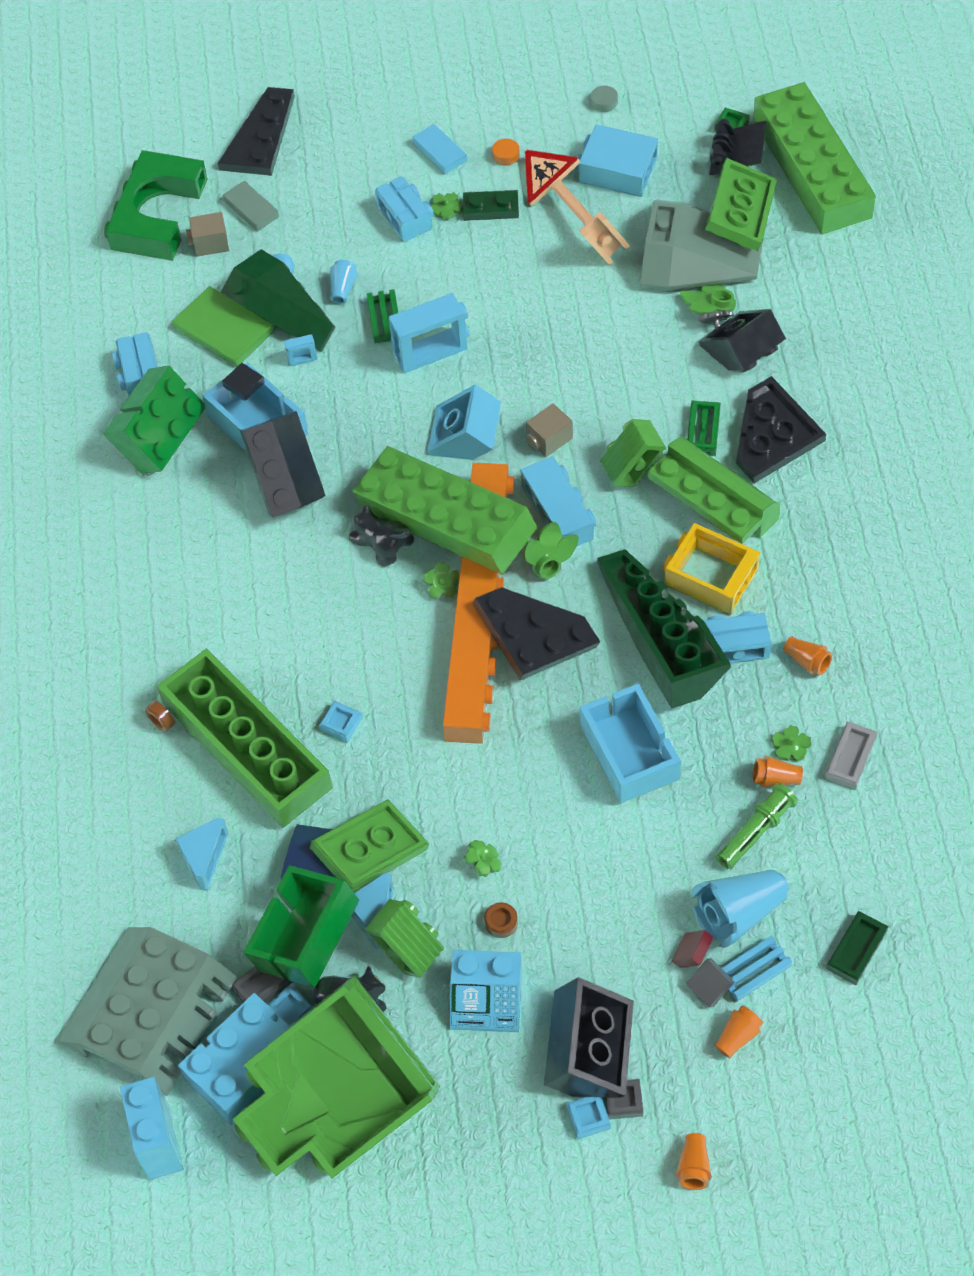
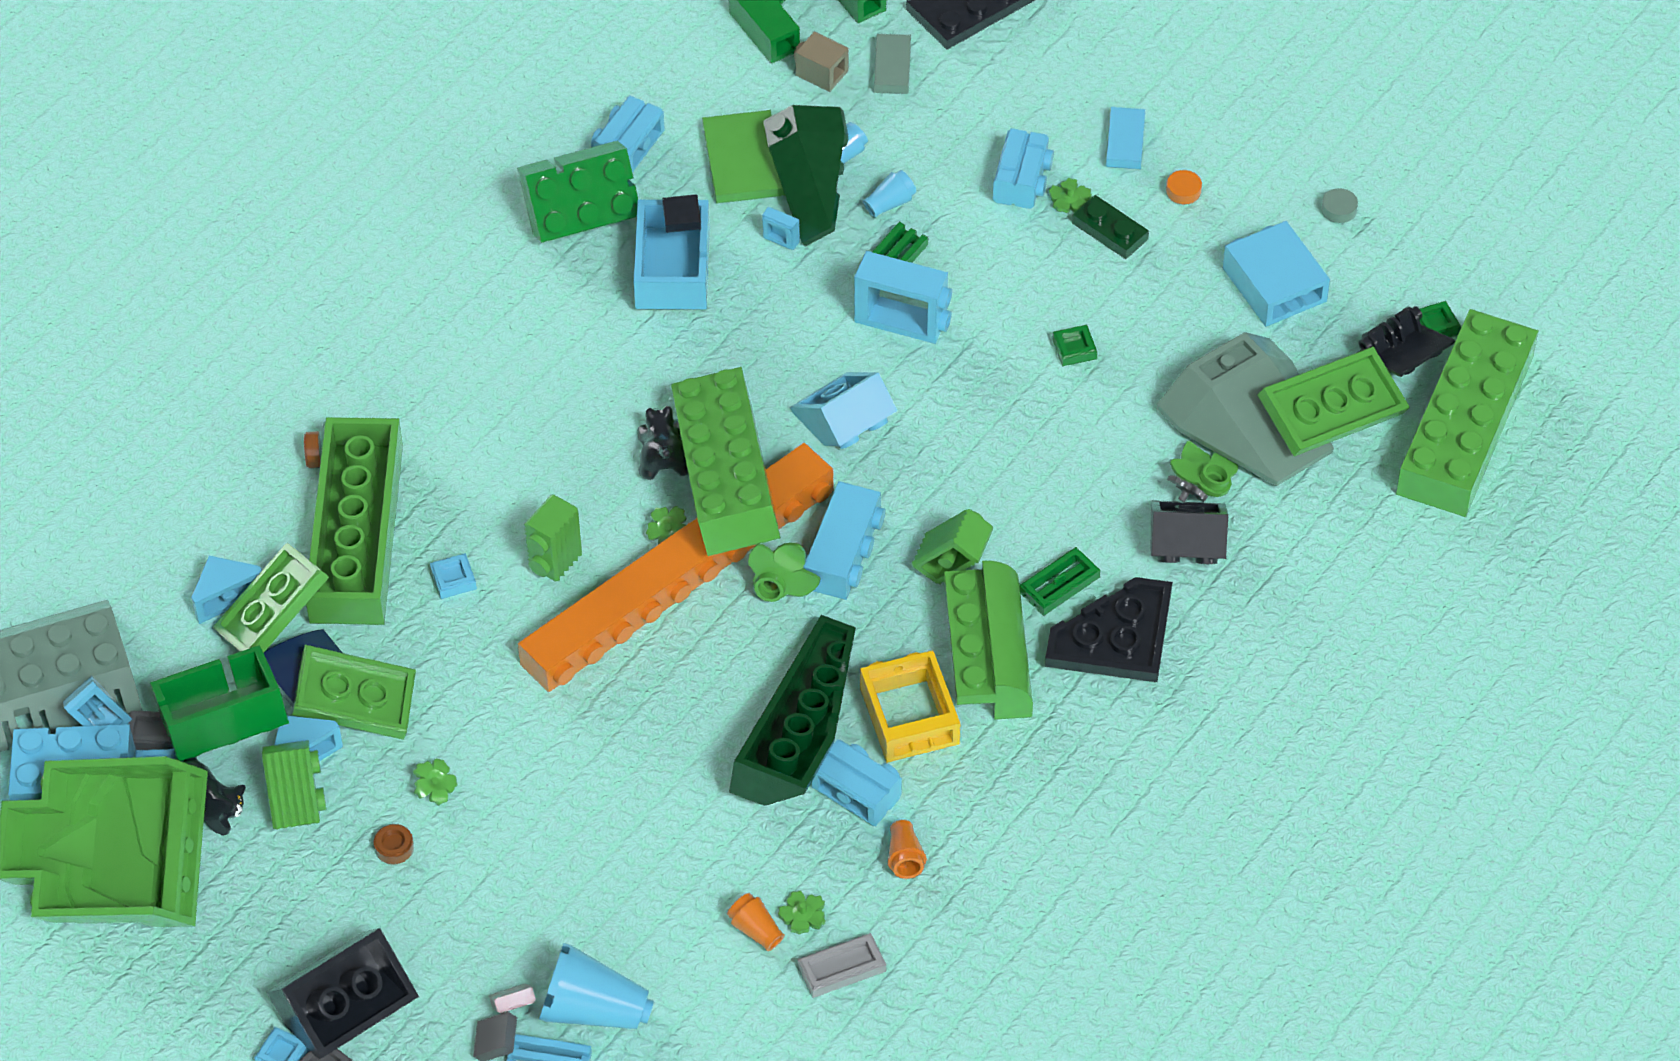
camera: 40 degrees right, 5 degrees down
(212, 1001) = (95, 706): none -> medium azure slope
(254, 833) = (271, 600): none -> bright green tile
(282, 464) = (638, 313): black slope -> none
(388, 642) = (553, 538): none -> bright green brick
(485, 991) = (313, 884): medium azure slope -> none
(532, 631) = (688, 631): black plate -> none
(545, 173) = (1158, 319): light nougat piece -> none
(549, 430) = (911, 470): dark tan brick -> none
(550, 287) = (1074, 345): none -> green tile
(630, 743) = (653, 790): medium azure piece -> none
(765, 816) = (704, 948): bright green pin -> none

